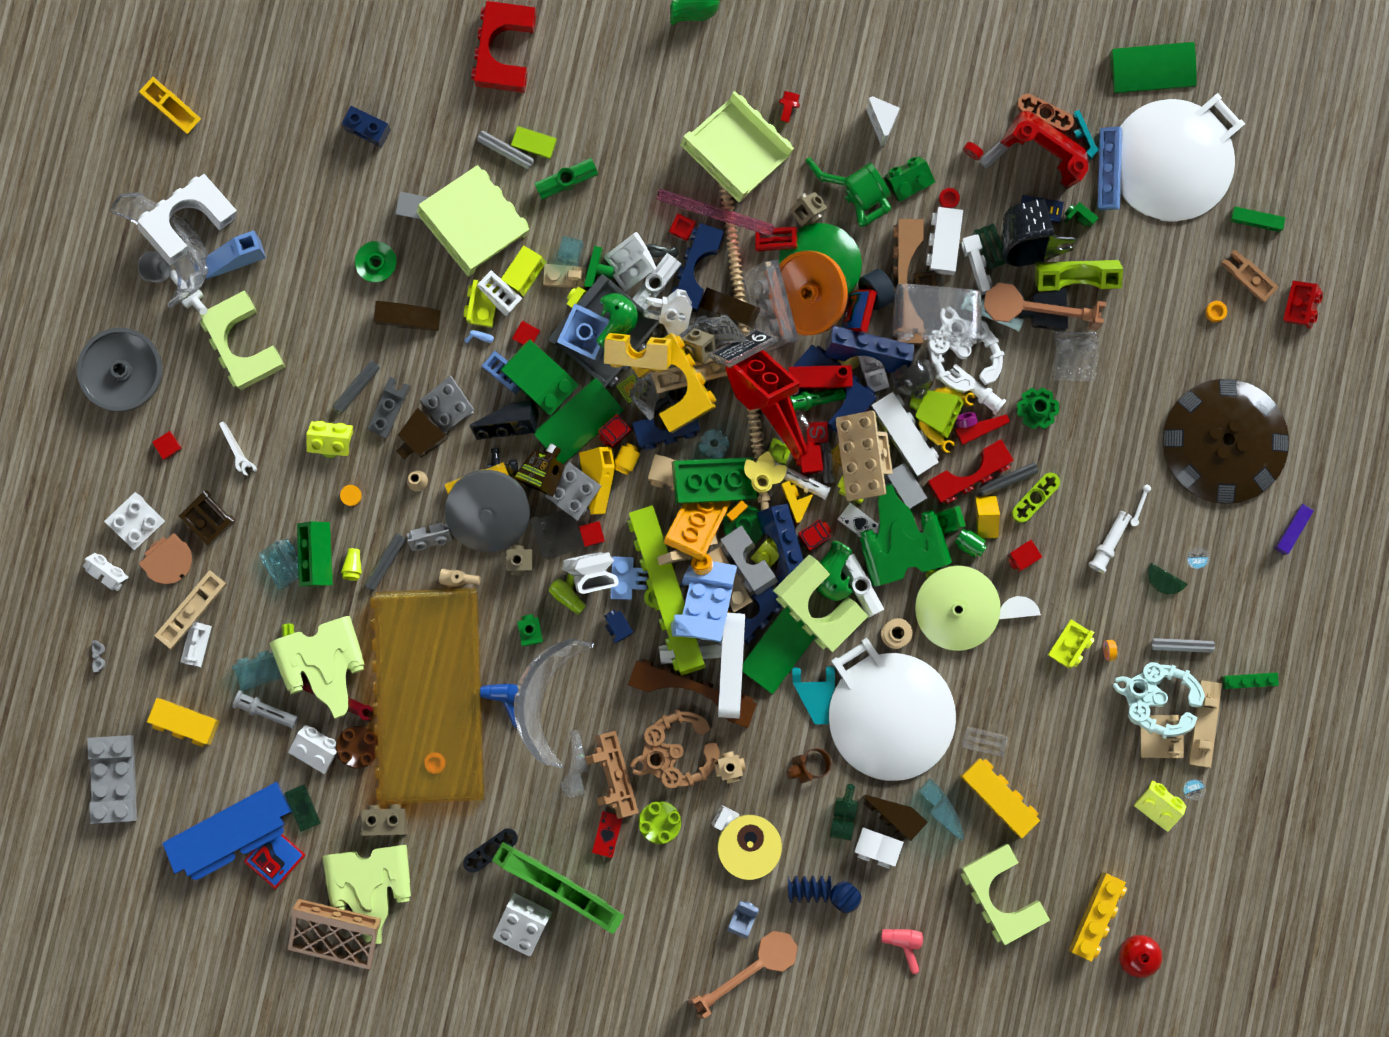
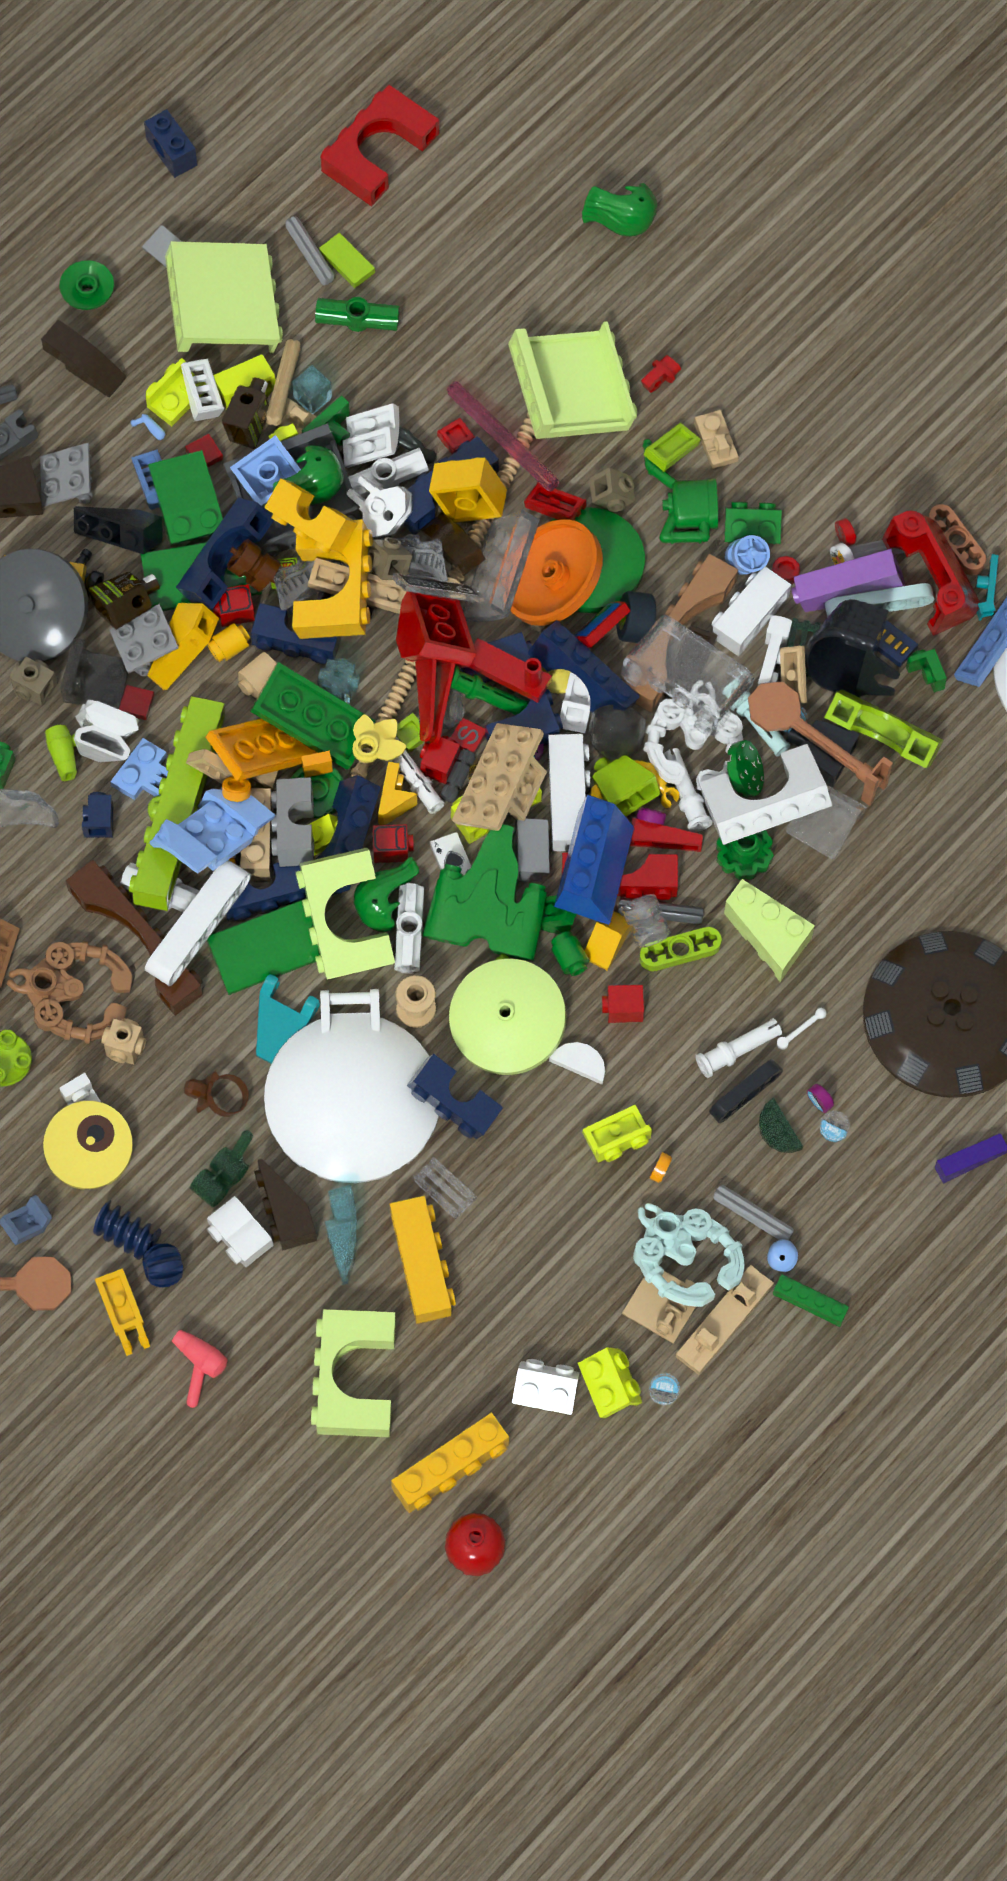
camera: 30 degrees right, 15 degrees down
(543, 302) = (247, 414): none -> dark brown torso
(549, 257) = (283, 382): none -> tan axle
(589, 380) = (205, 577): none -> dark blue arch
(611, 400) = (251, 563): none -> reddish brown wheel
(719, 266) = (468, 489): none -> yellow brick
(827, 154) = (672, 447): none -> lime tile
(836, 938) = (121, 1308): none -> yellow hinge
(850, 131) = (716, 439): none -> tan hinge
(882, 117) = (762, 440): white slope -> none
(923, 205) = (748, 554): none -> light blue wheel
(955, 477) = (595, 861): none -> blue slope
(976, 684) = (432, 1085): none -> dark blue arch
(981, 169) = (841, 553): none -> white tile
(997, 186) = (851, 577): none -> medium lavender slope
(1000, 269) = (793, 670): none -> tan slope
(1007, 494) = (645, 918): none -> clear wheel
(1010, 355) = (745, 768): none -> green tile
(1022, 186) = (890, 599): none -> light aqua beam
(1029, 395) = (742, 817): none -> white arch
(1084, 452) = (769, 926): none -> yellowish green wedge
(1124, 831) = (546, 1386): none -> white bracket
(1132, 569) = (745, 1091): none -> black beam
(1181, 546) = (820, 1098): none -> magenta tile
(1217, 663) = (785, 1248): none -> light blue piece

